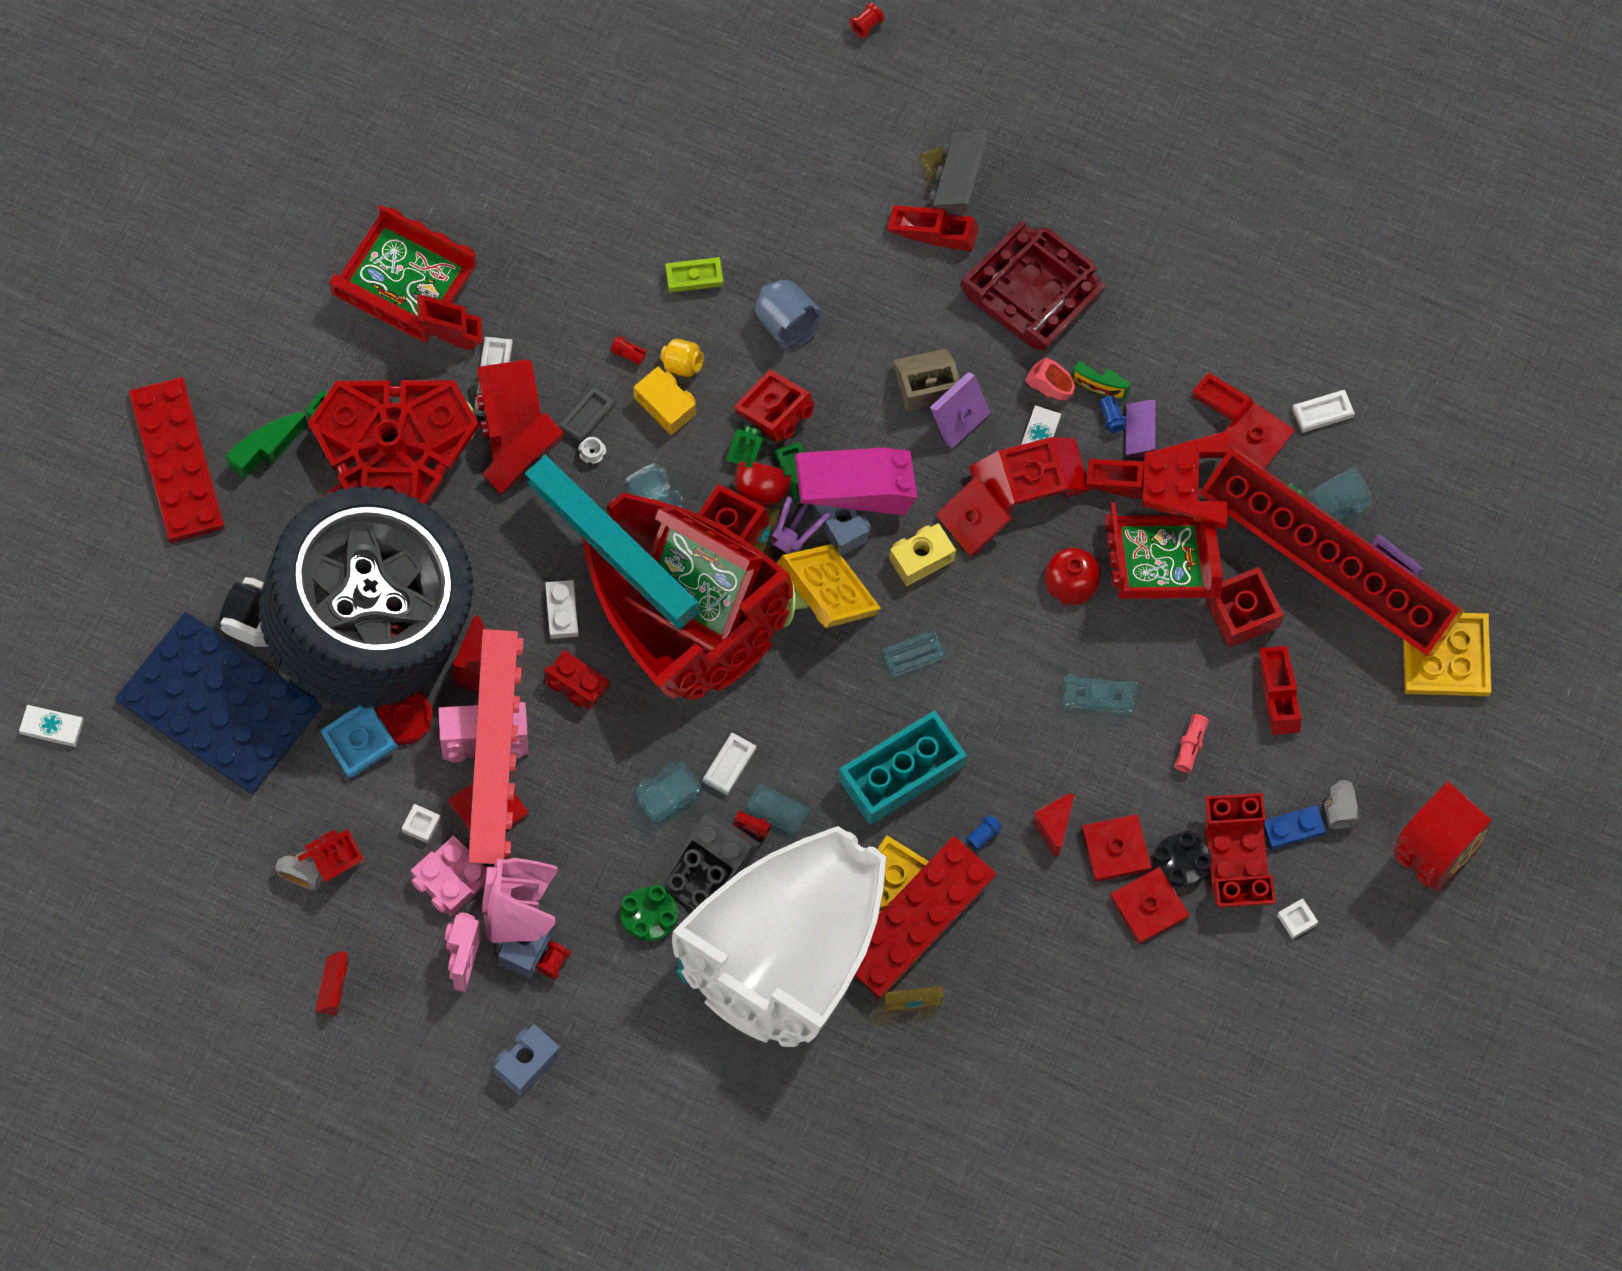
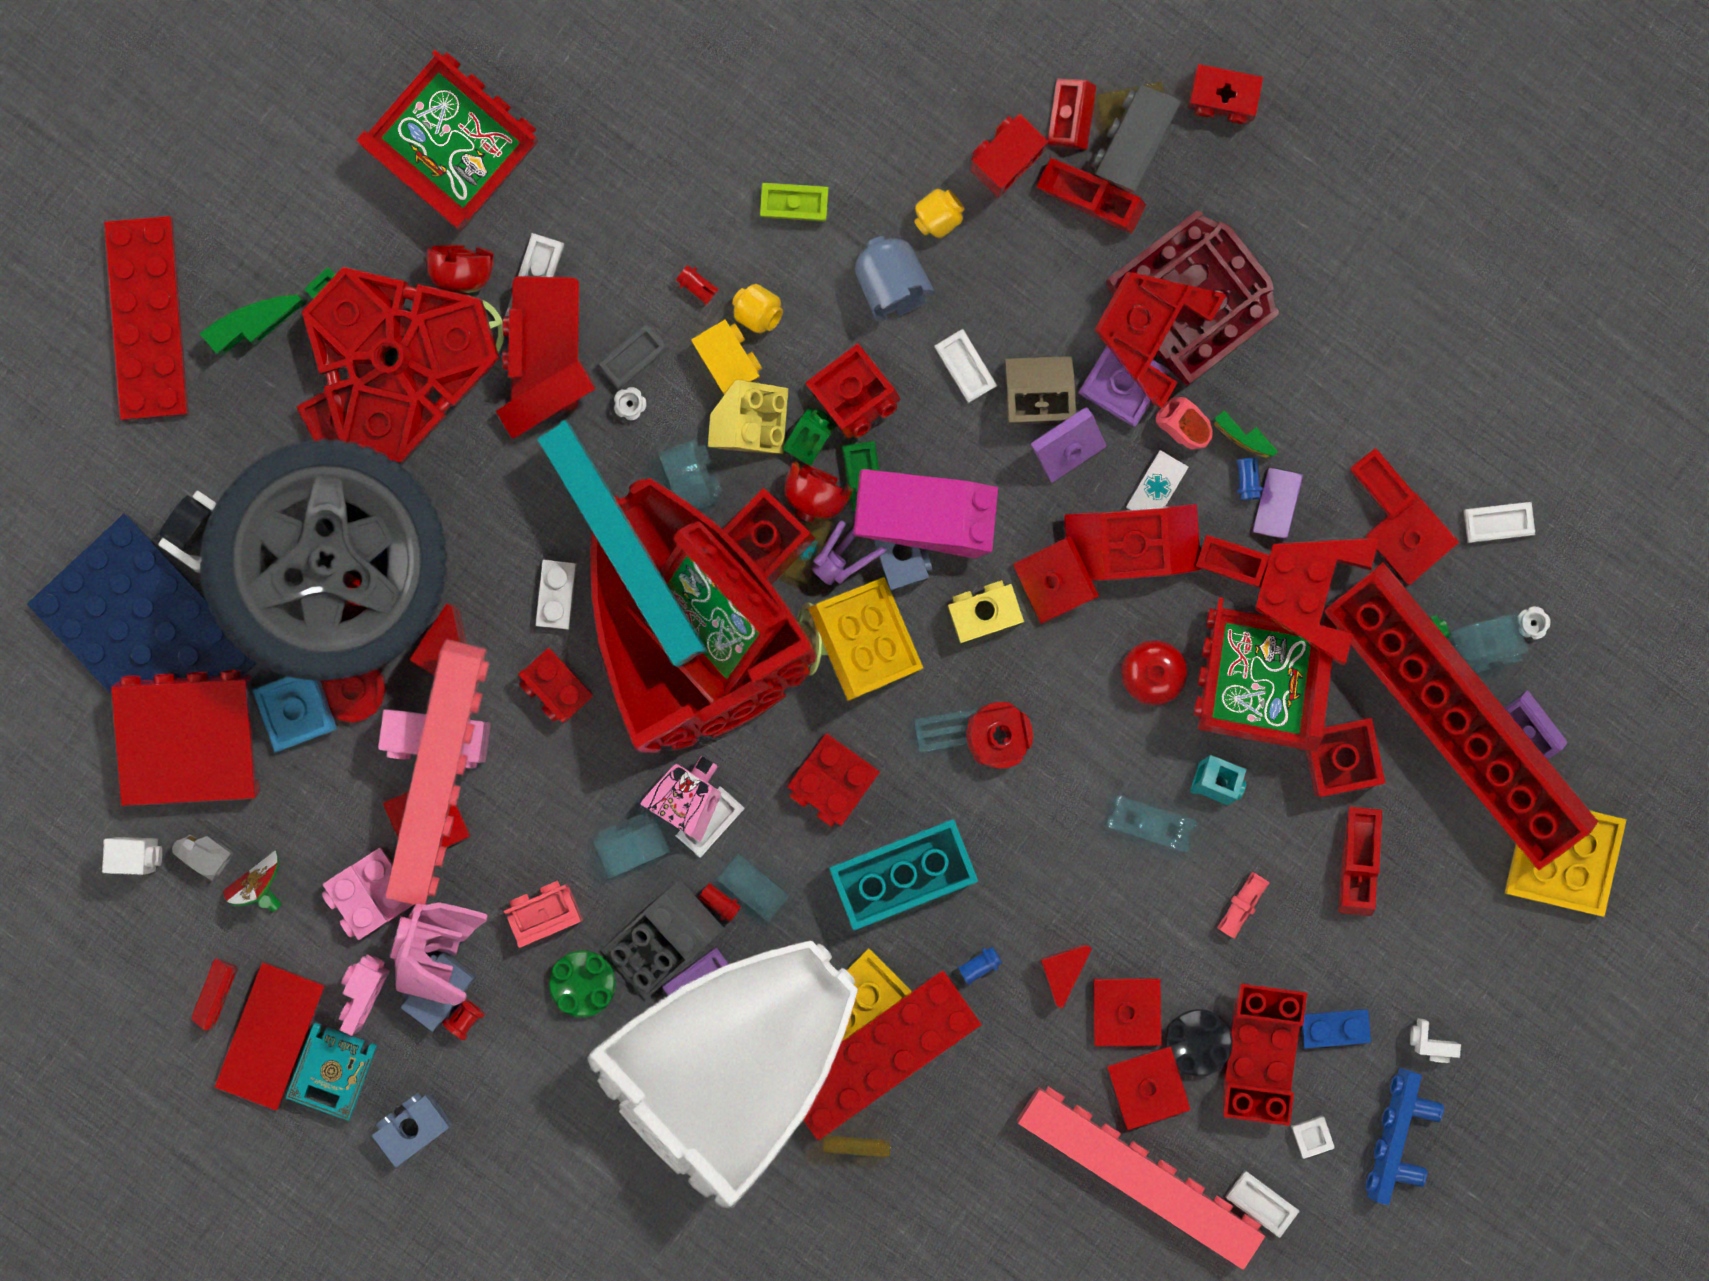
camera: 20 degrees right, 20 degrees up
(242, 876) = (131, 855): none -> white brick
(271, 774) = (184, 738): none -> red panel
(333, 854) = (237, 848): red bracket -> none
(352, 883) = (255, 885): none -> shield
(387, 1010) = (270, 1036): none -> red tile
(421, 823) = (347, 823): white tile -> none
(432, 366) = (459, 268): none -> red cylinder
(447, 1021) = (333, 1066): none -> teal container
(449, 322) = (488, 218): red slope -> none
(604, 861) = (543, 914): none -> coral hinge
(694, 442) = (750, 419): none -> light yellow slope
(705, 743) = (686, 798): none -> bright pink torso
(813, 261) = (939, 213): none -> yellow head
(825, 710) = (832, 781): none -> red plate
(859, 204) = (1008, 155): none -> red brick
(861, 373) = (965, 366): none -> white tile
(902, 172) = (1072, 113): none -> red slope
(946, 655) = (981, 740): none -> red plate
(993, 359) = (1115, 389): none -> medium lavender plate
(995, 305) = (1141, 319): none -> red wing
(1009, 127) = (1210, 81): none -> red brick
(1147, 646) = (1228, 774): none -> teal brick
(1161, 976) = (1140, 1177): none -> coral brick
(1269, 982) = (1262, 1203): none -> white tile
(1341, 806) = (1396, 1016): light grey rock -> none
(1364, 911) = (1396, 1124): none -> blue plate
(1378, 477) = (1542, 619): none -> white plate
(1382, 824) = (1437, 1049): none -> white bracket
(1441, 837) = (1494, 1100): red brick -> none

